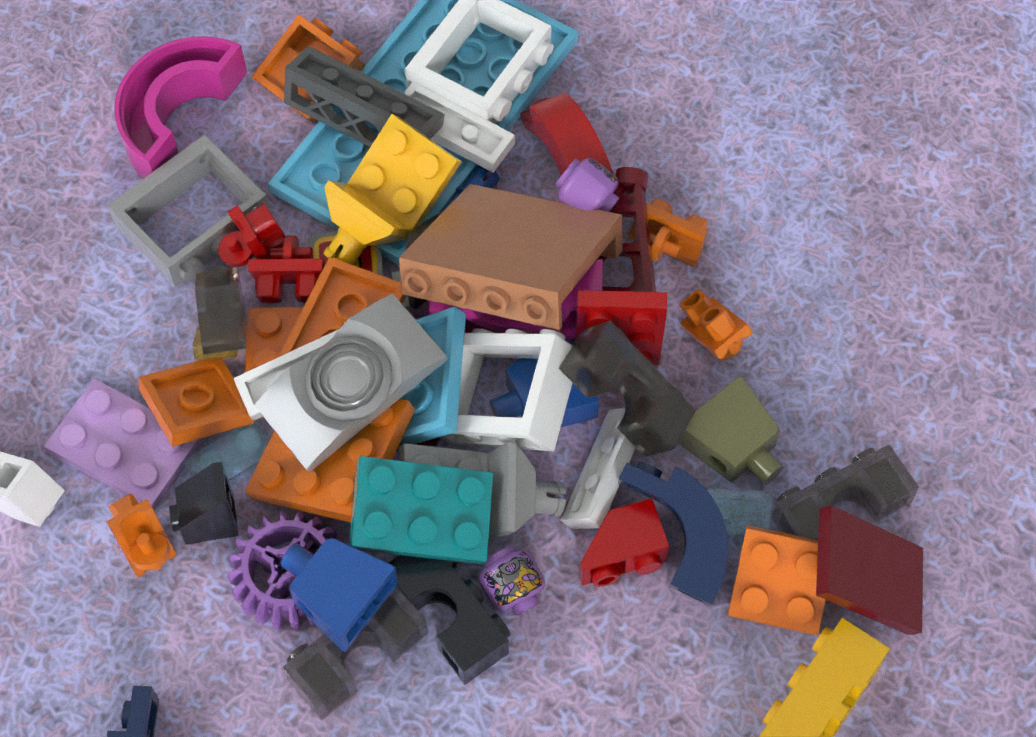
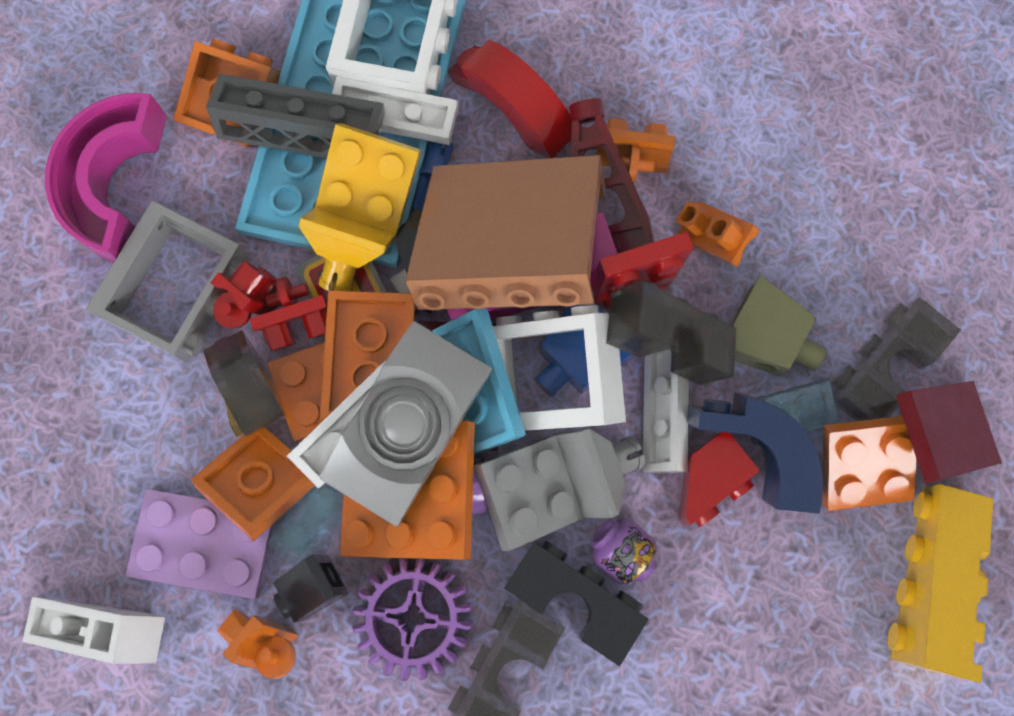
camera: 20 degrees left, 15 degrees up
(338, 587) = (473, 636): blue torso -> none
(421, 510) = (522, 528): teal plate -> none
(588, 186) = (553, 135): medium lavender head -> none

